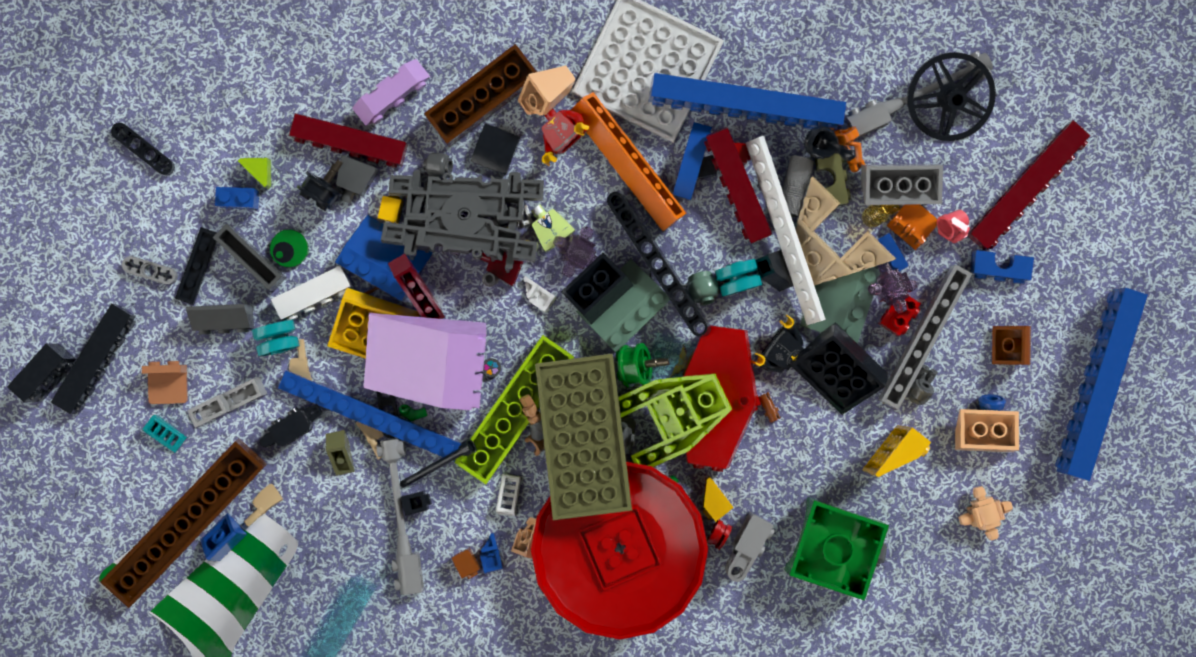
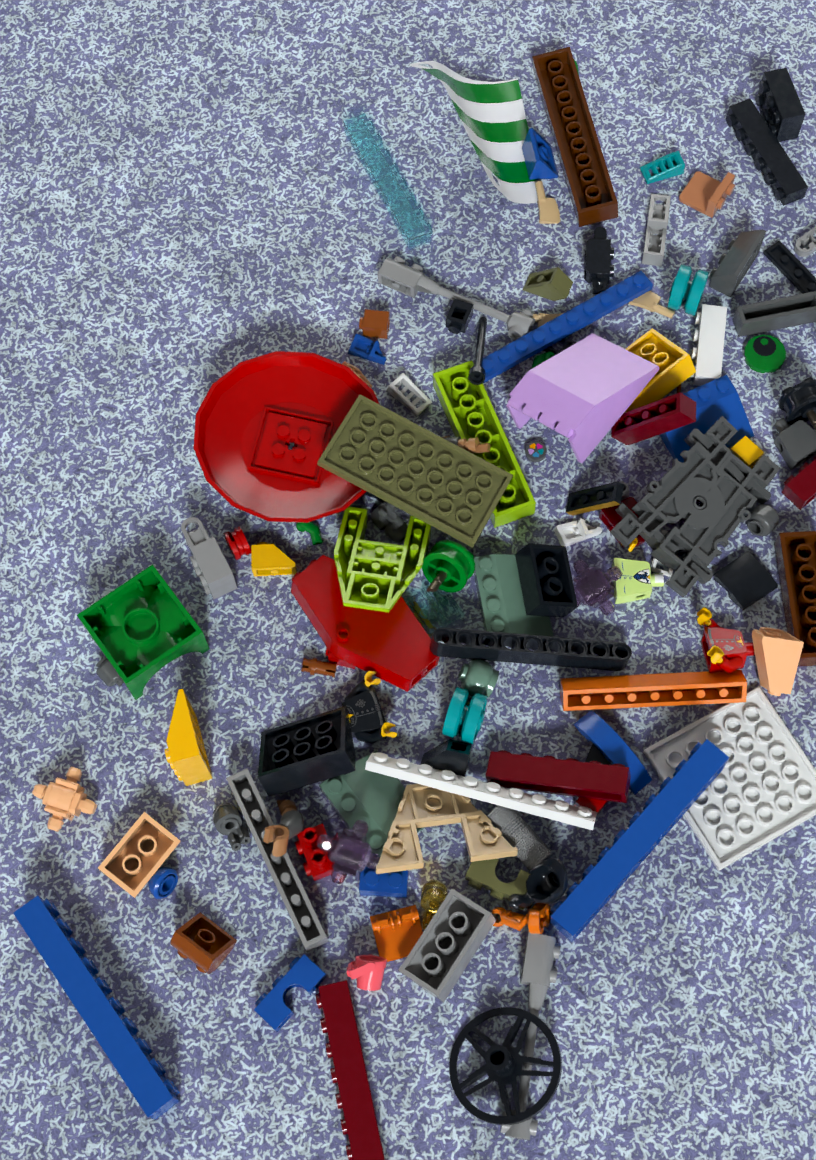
camera: 120 degrees right, 20 degrees down
(508, 294) = (595, 498): none -> black plate
(901, 341) = (289, 827): none -> medium nougat piece

